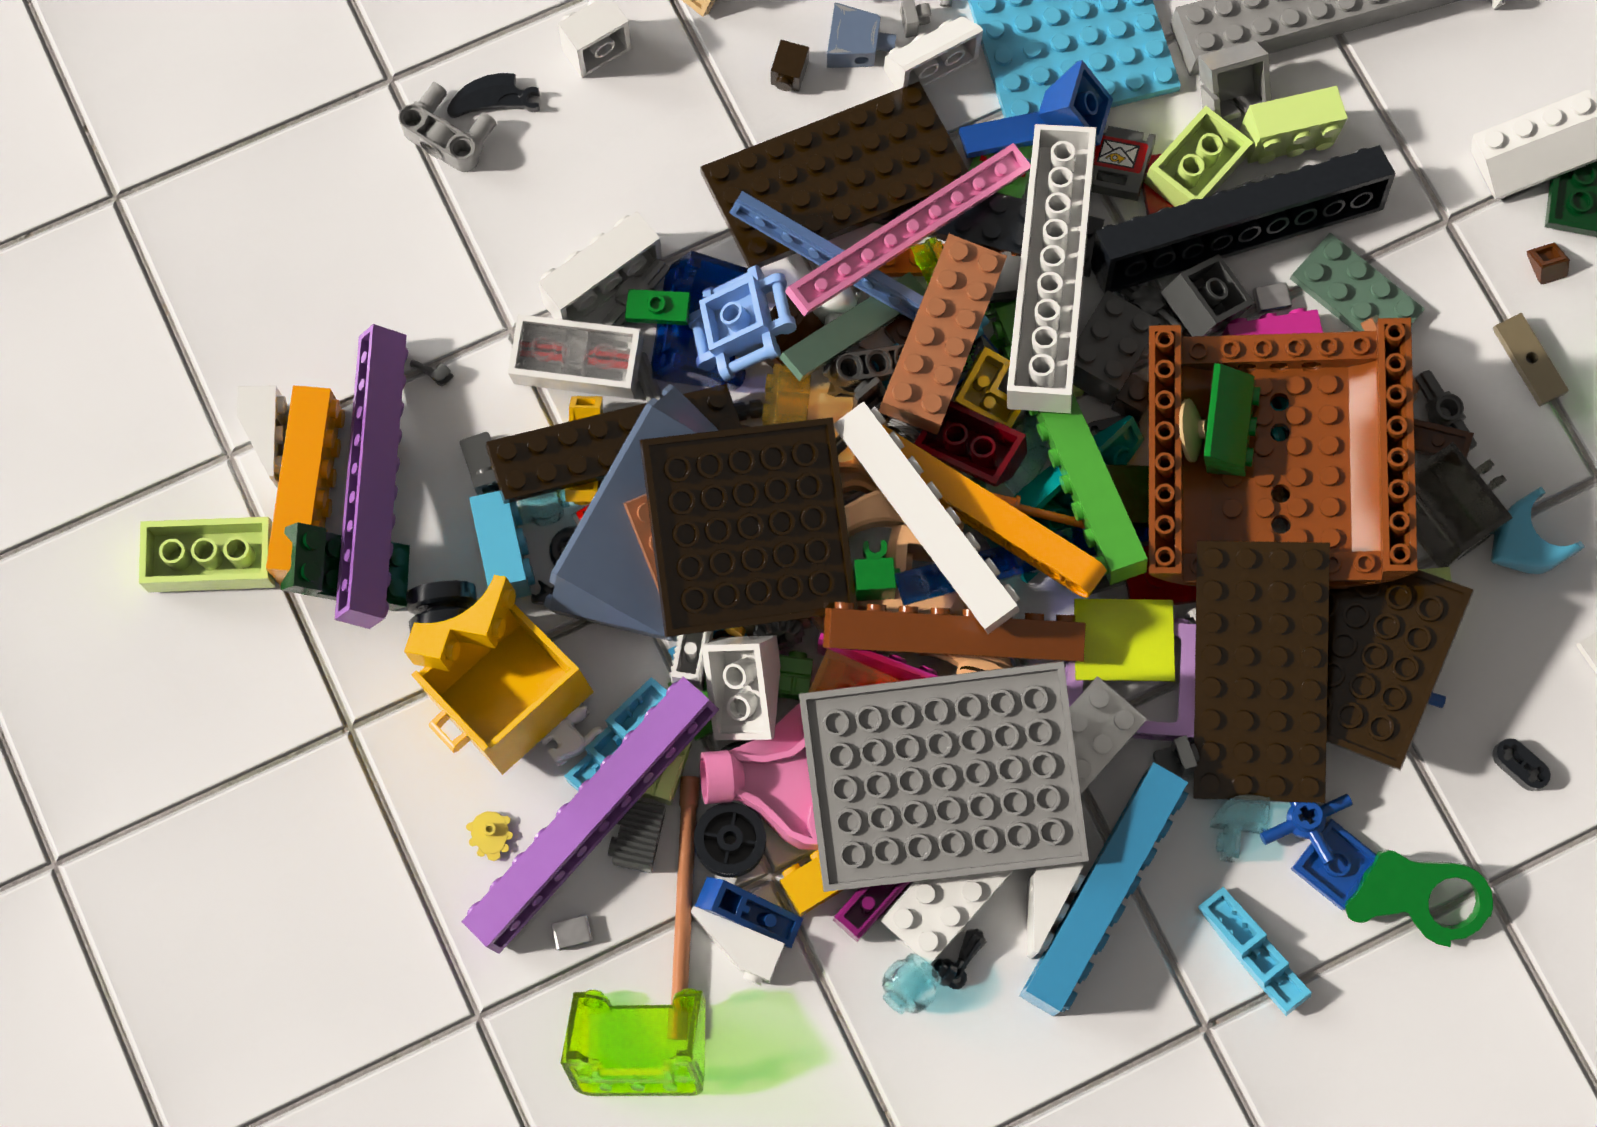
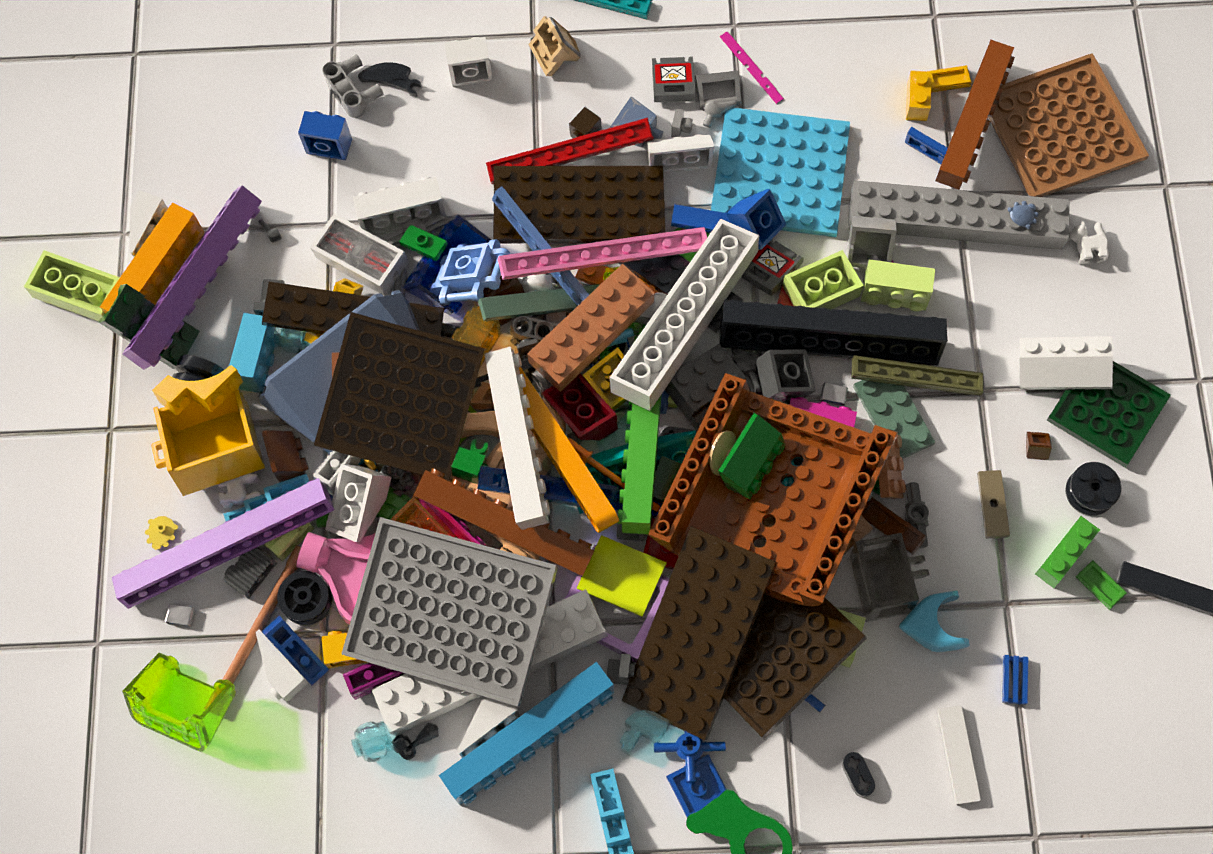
camera: 30 degrees right, 5 degrees down
(449, 211) = (325, 135): none -> blue brick
(611, 665) = (285, 454): none -> reddish brown slope
(795, 100) = (579, 147): none -> red tile
(1366, 232) = (917, 375): none -> olive tile

